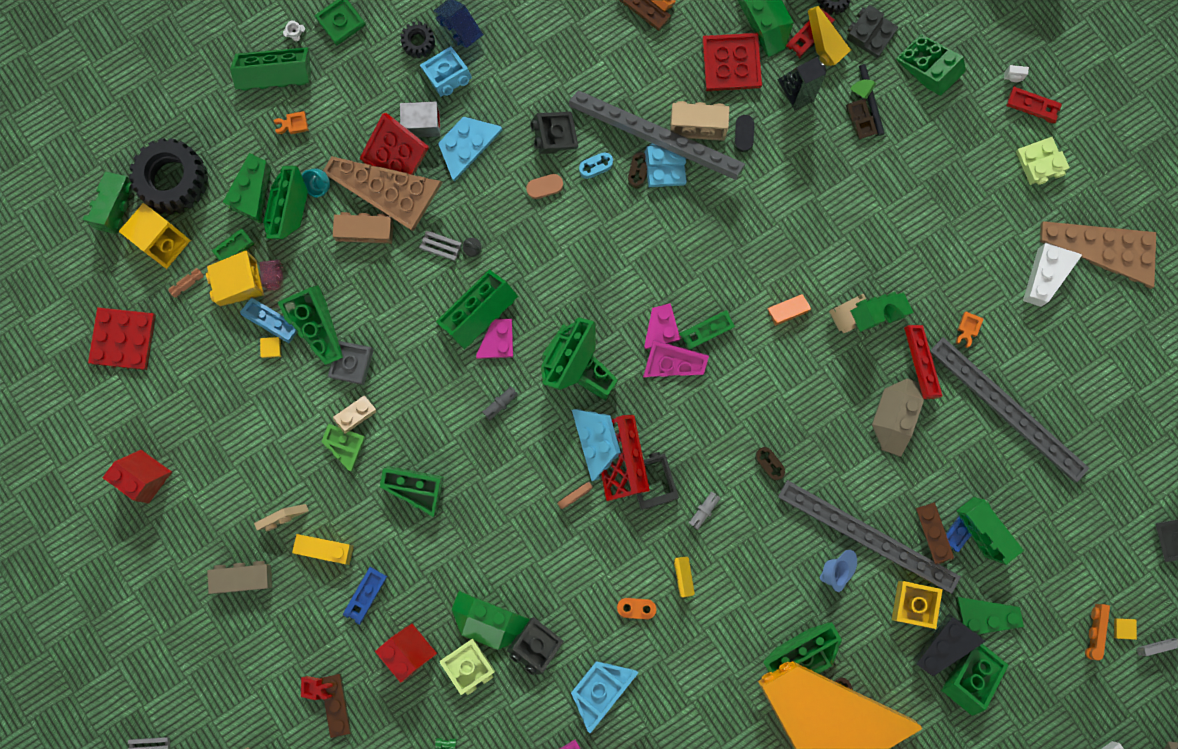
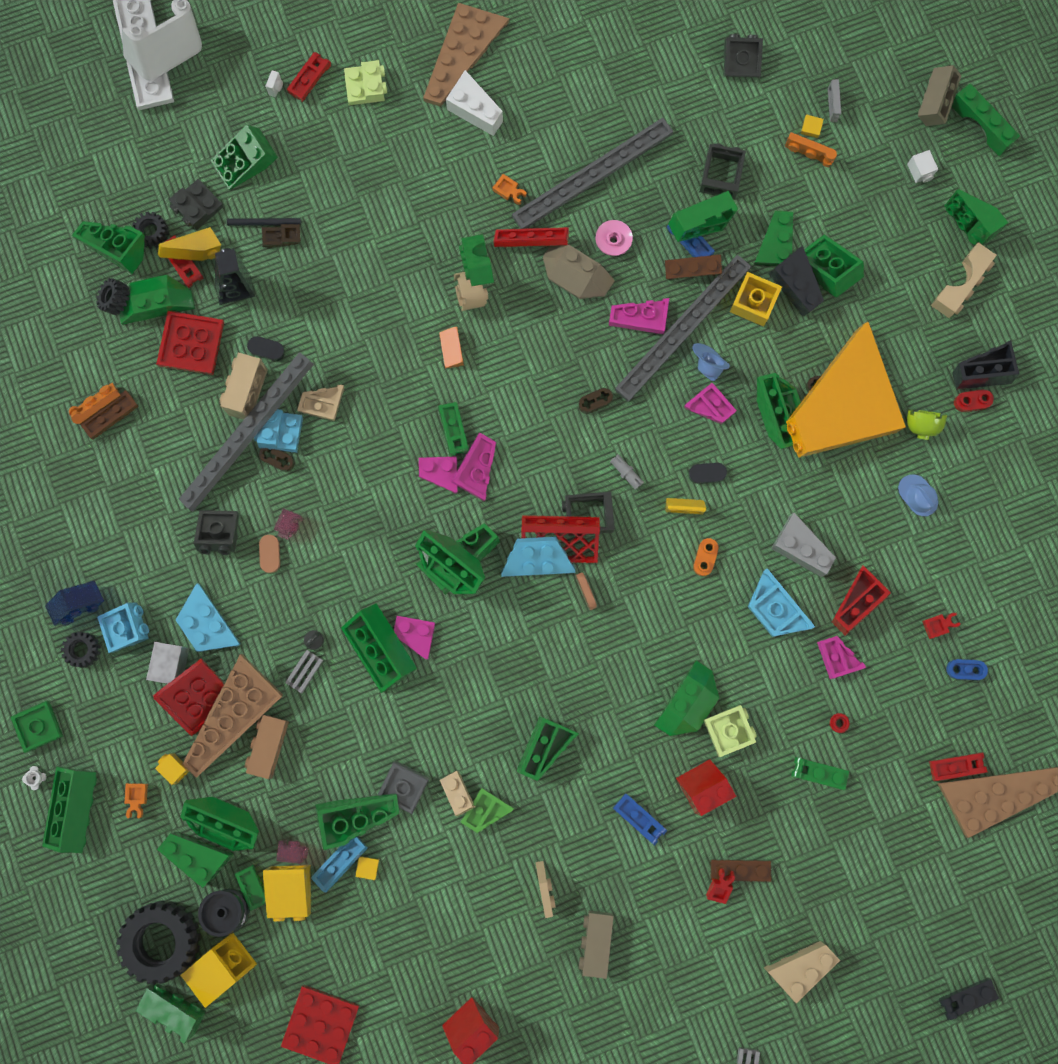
camera: 80 degrees left, 0 degrees up
(185, 282) = (277, 945): nougat axle -> none
(205, 226) = (212, 916): none -> black wheel
(316, 182) = (206, 785): teal hair -> none
(323, 549) = (585, 853): yellow slope -> none
(325, 148) = (172, 768): none -> yellow brick
(500, 403) = (479, 645): dark grey pin -> none
(534, 647) = (724, 661): pearl dark grey plate -> none
(576, 195) = (287, 524): none -> clear pink brick
(598, 169) = (256, 499): medium azure beam -> none
(668, 705) = (803, 547): none -> light grey wedge
(703, 199) = (321, 403): none -> tan wing
(722, 593) = (707, 473): none -> black tile
(794, 582) = (711, 405): none -> dark pink wing
(863, 88) = (250, 225): bright green tile -> none
(868, 490) = (643, 317): none -> dark pink wing
(954, 445) = (616, 230): none -> bright pink dish
(1028, 542) = (717, 187): none -> pearl dark grey window

